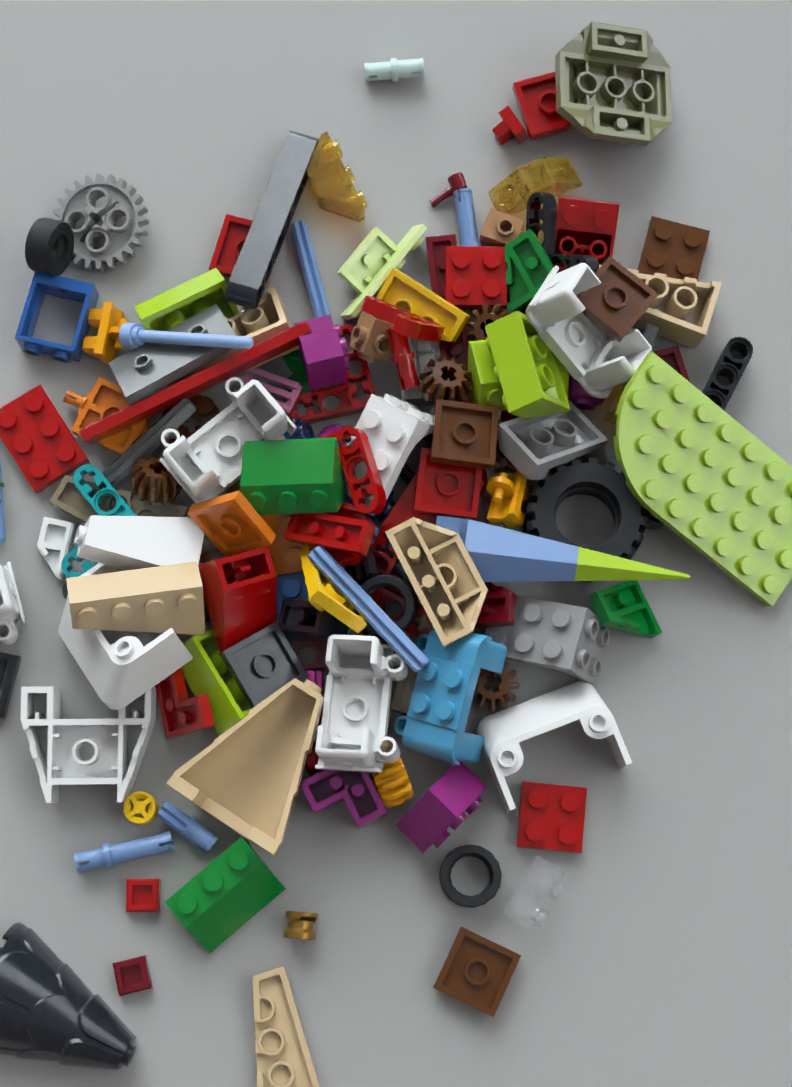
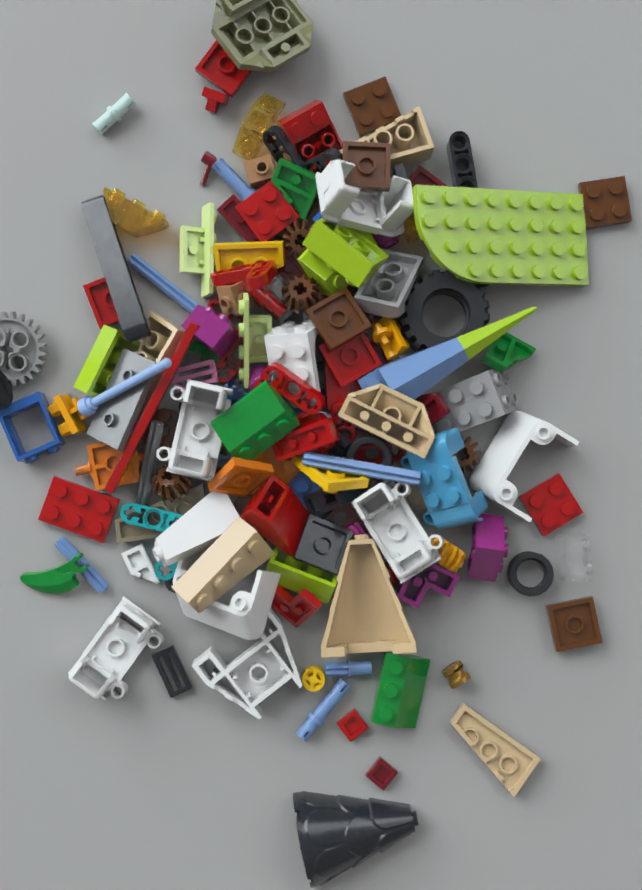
camera: 35 degrees left, 10 degrees up
(363, 382) = (253, 332): none -> yellowish green bracket

